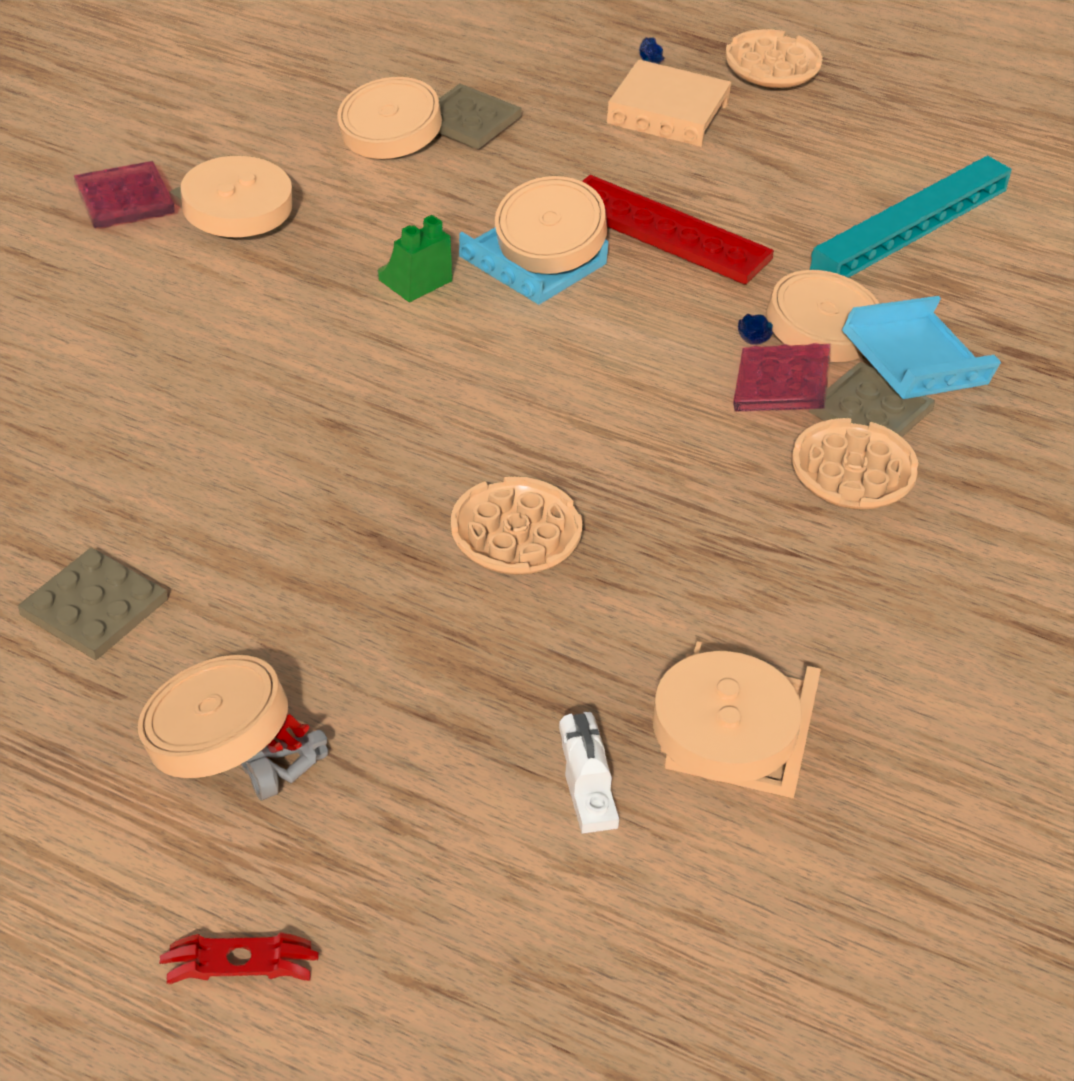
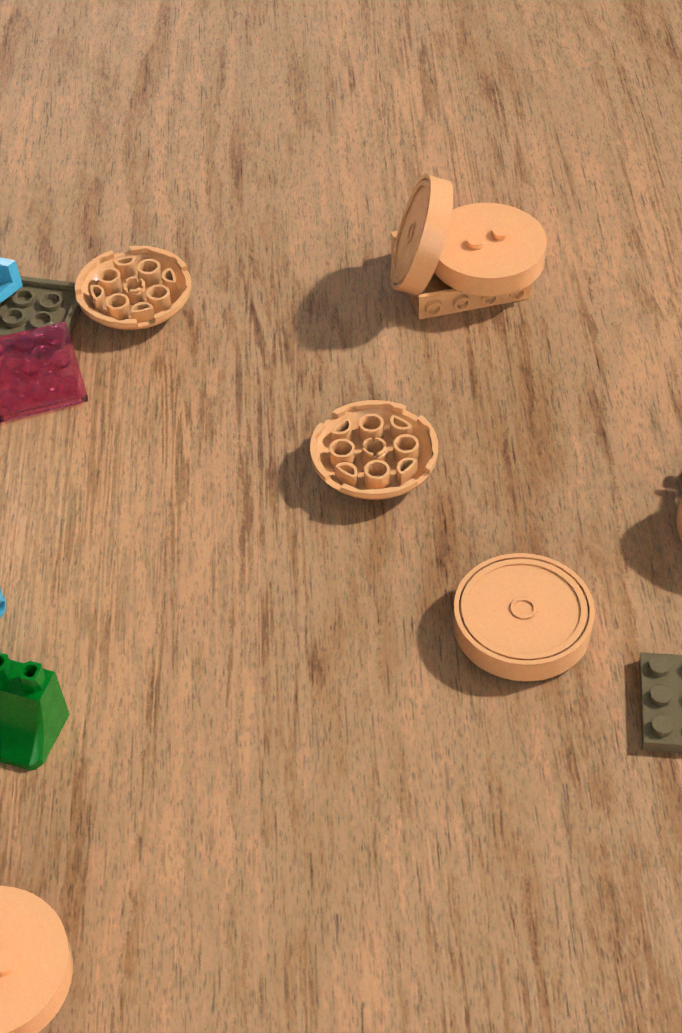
camera: 115 degrees left, 5 degrees up
(263, 536) = (523, 617): none -> light nougat brick
(588, 773) = (582, 316): white plate -> none
(753, 622) = (421, 234): none -> light nougat brick

